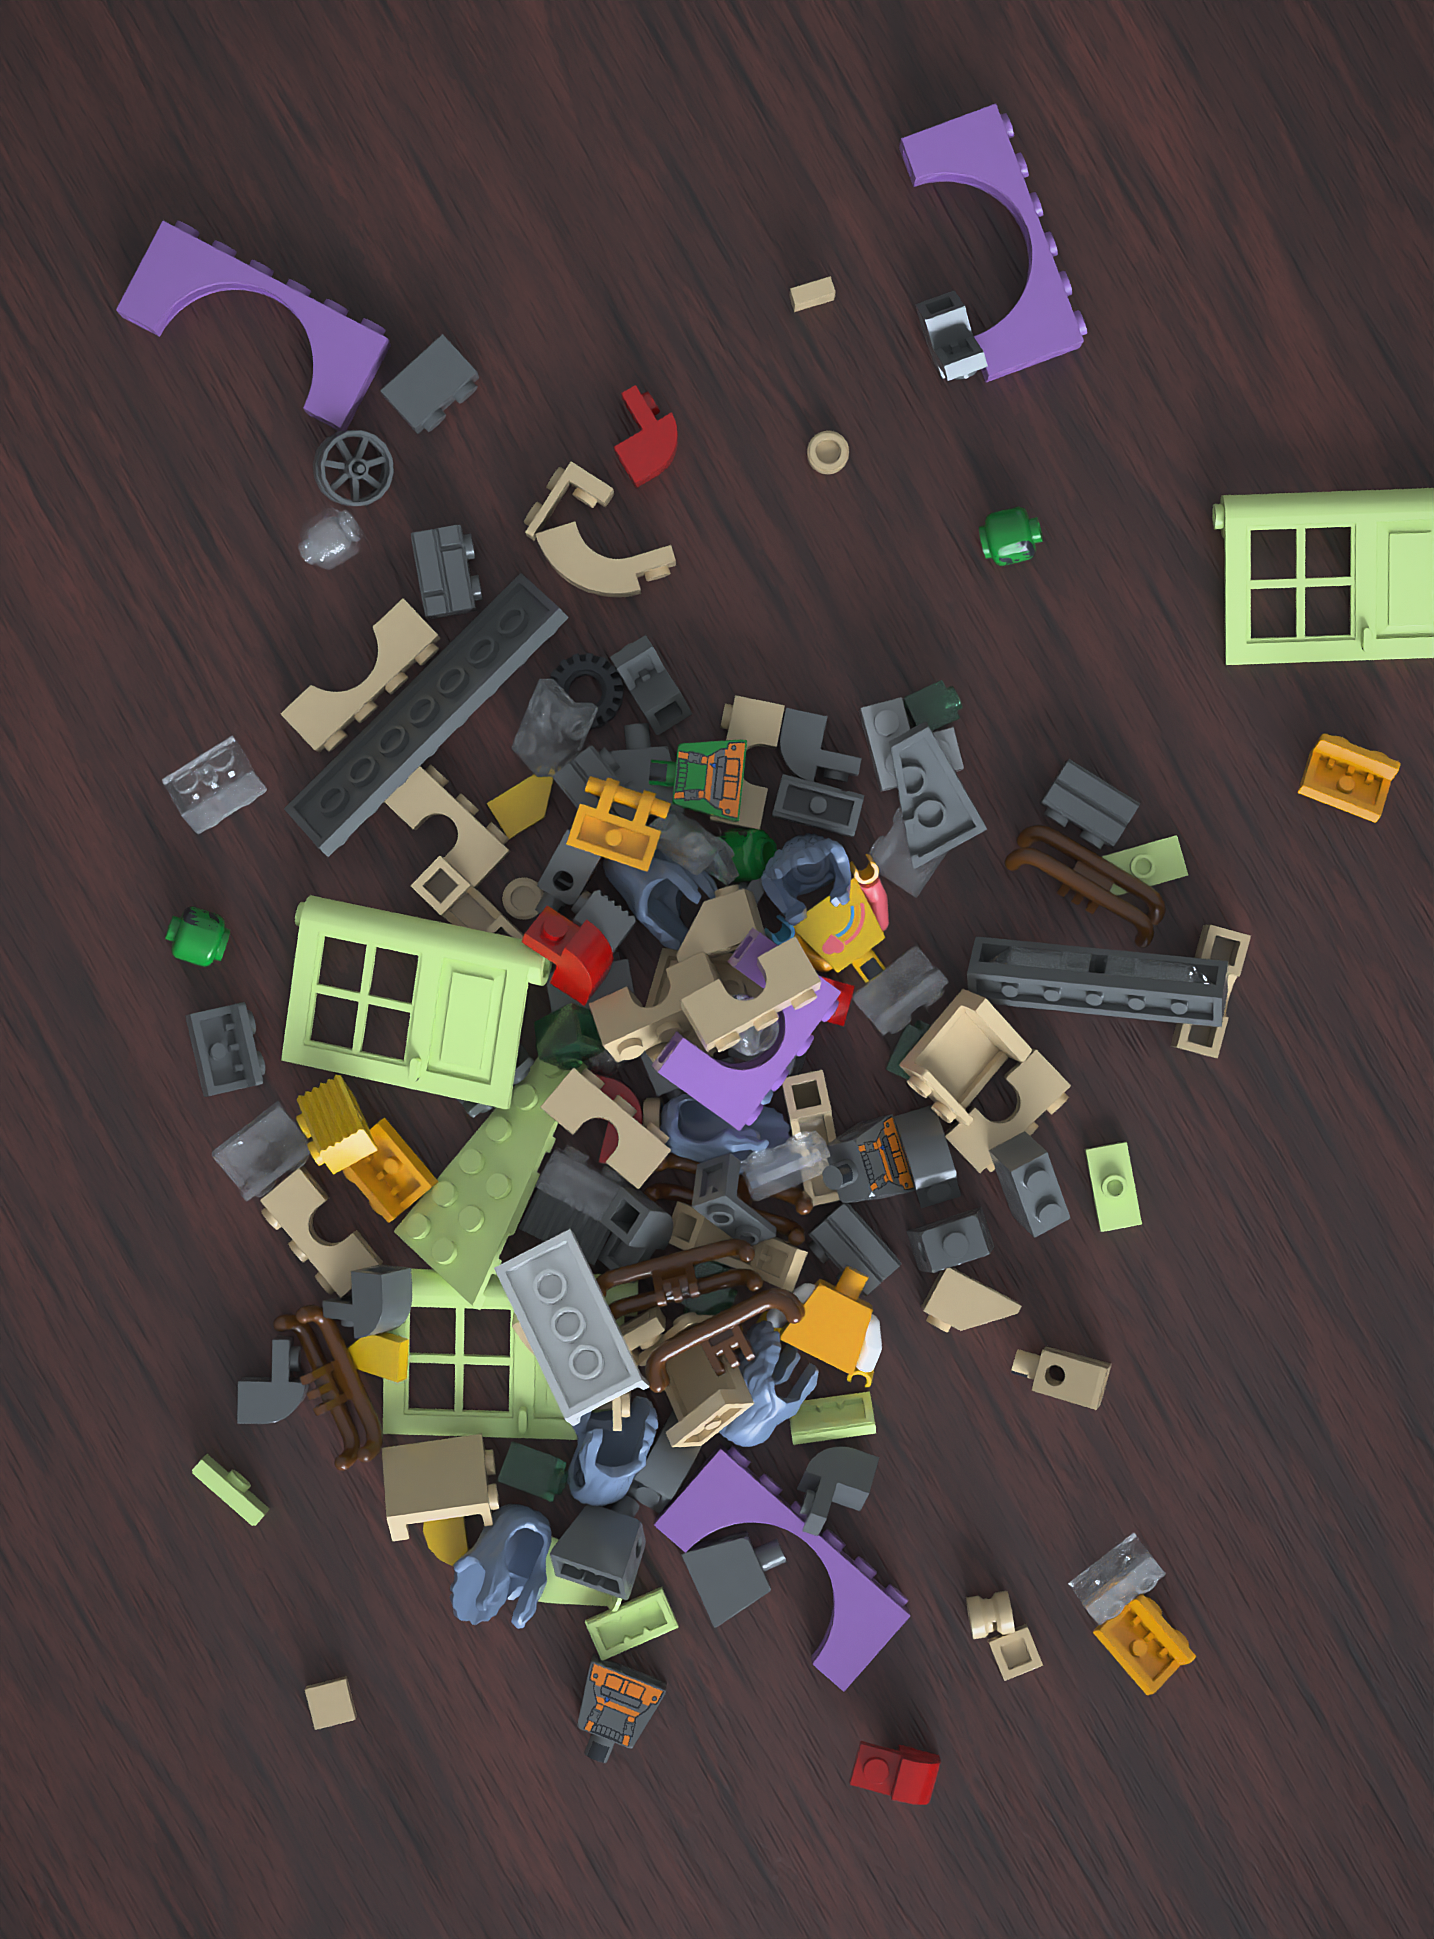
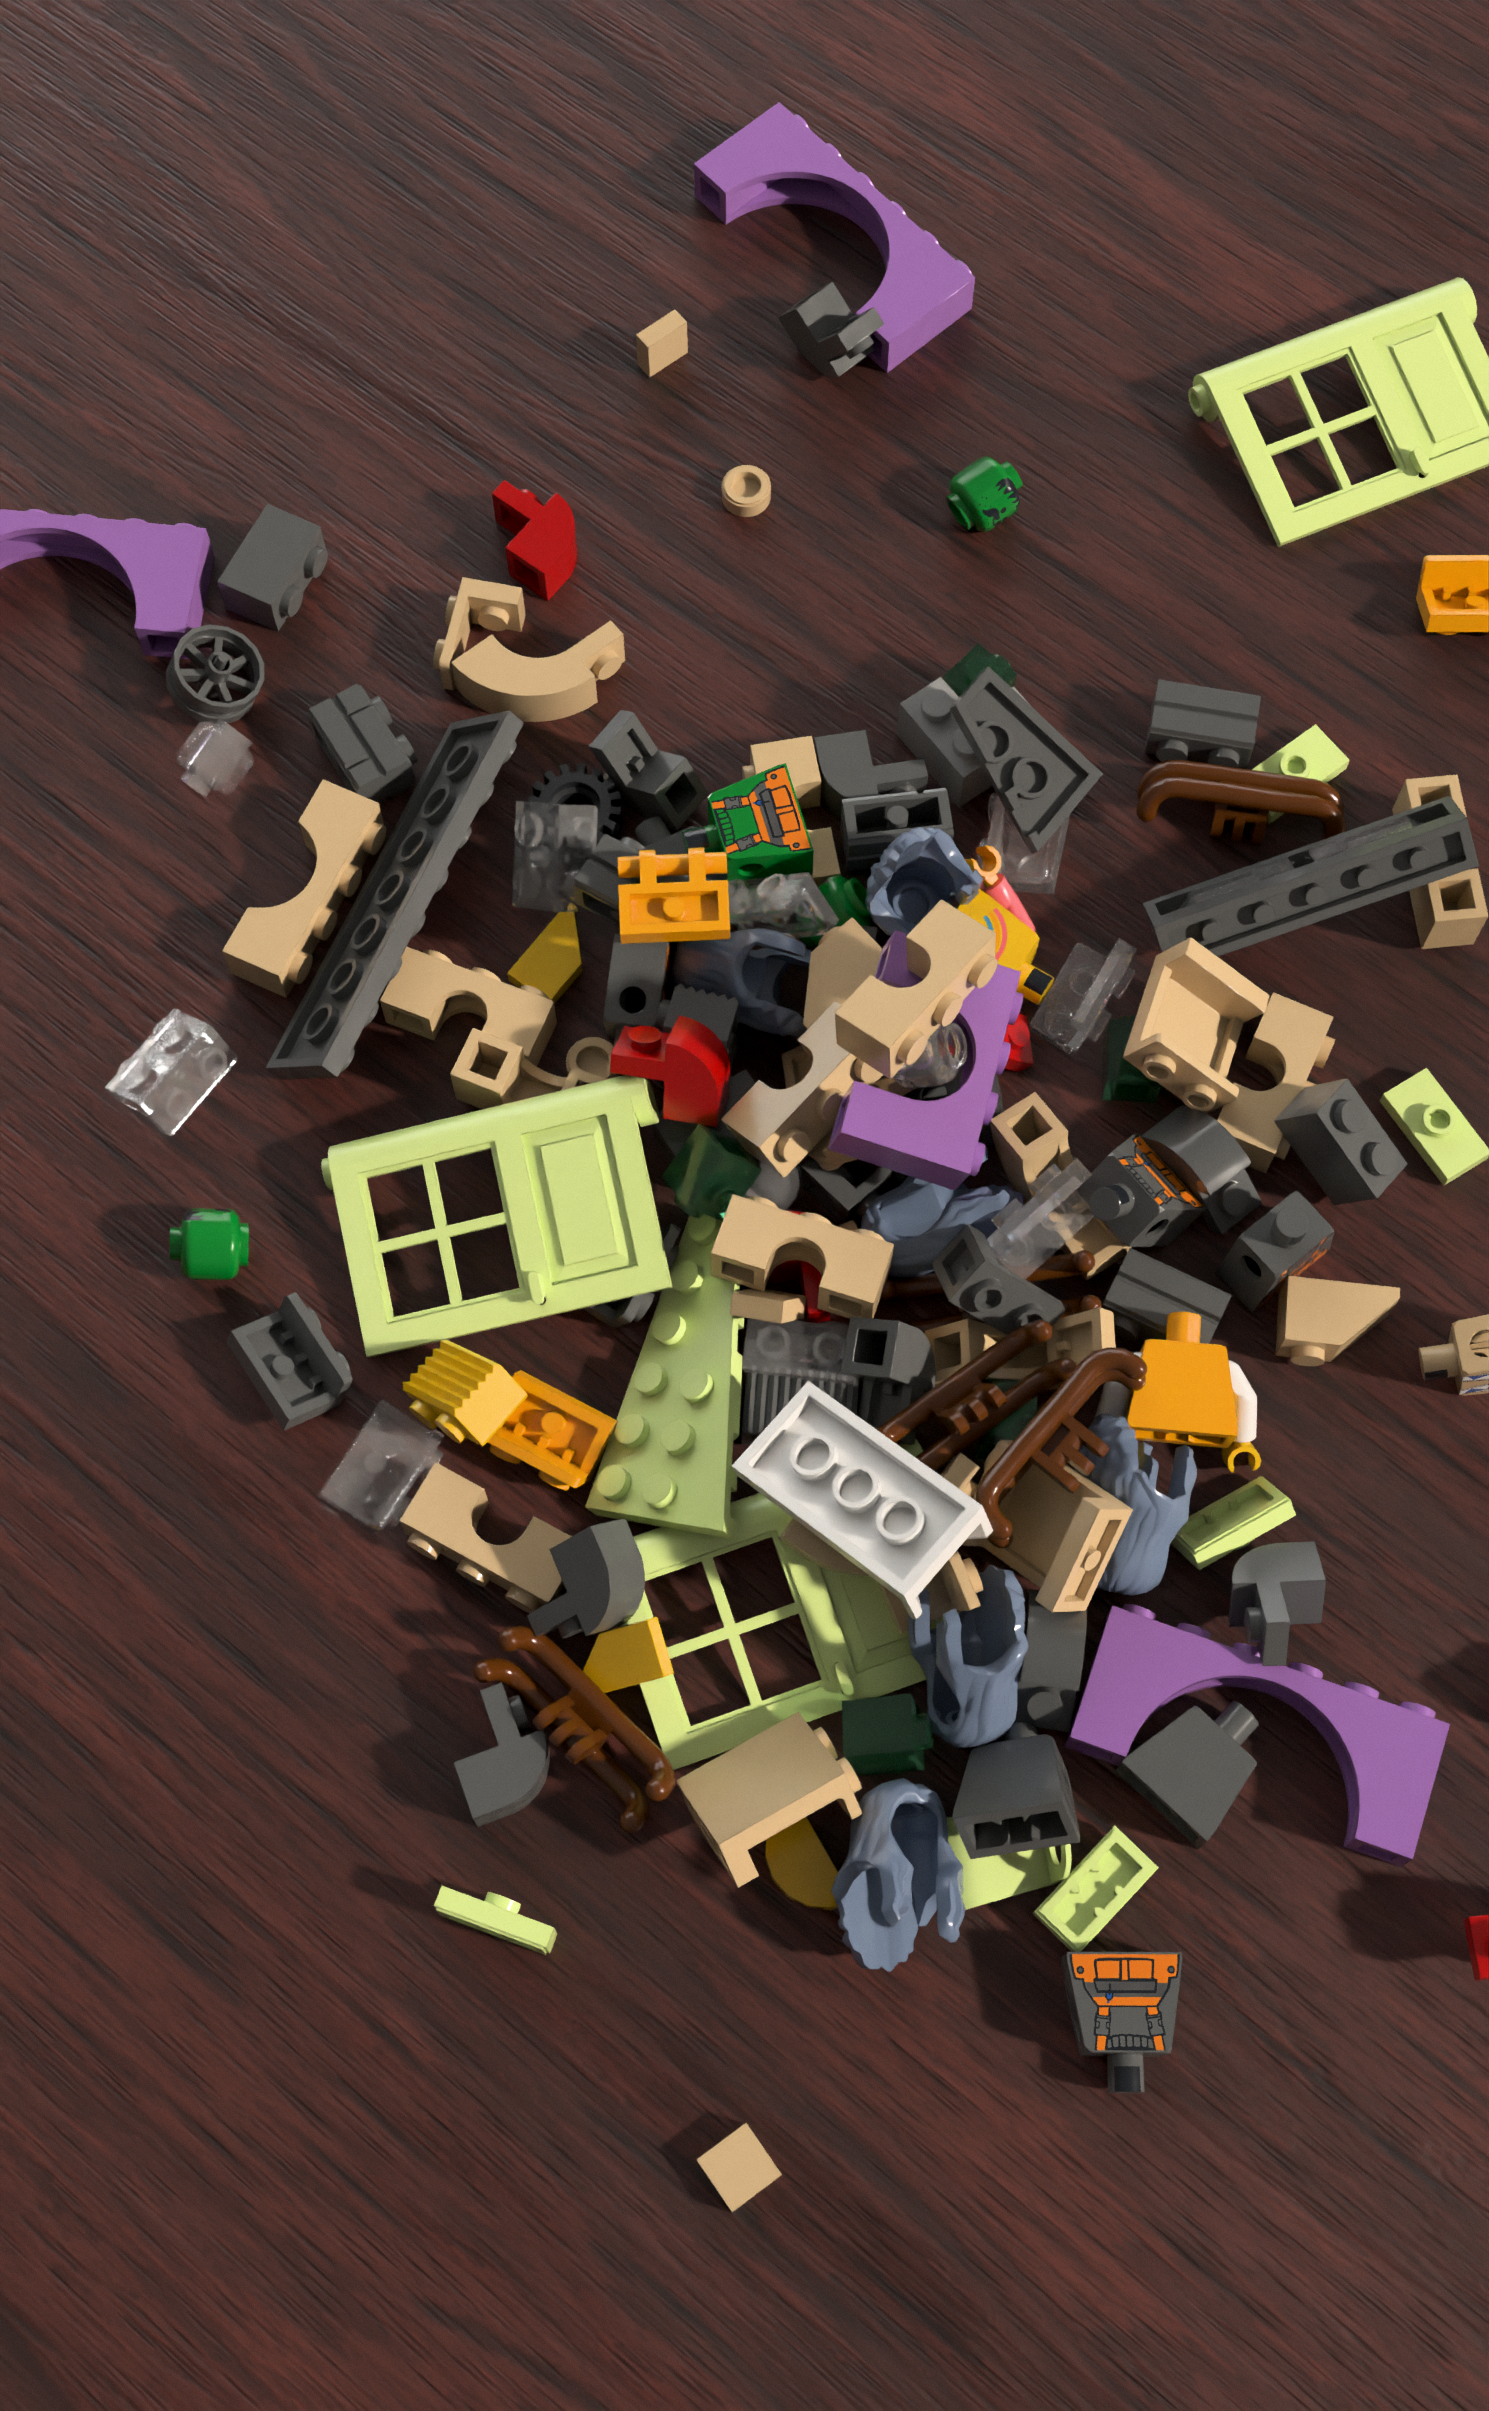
camera: 20 degrees left, 20 degrees down
(571, 1150) = (768, 1305): none -> tan tile

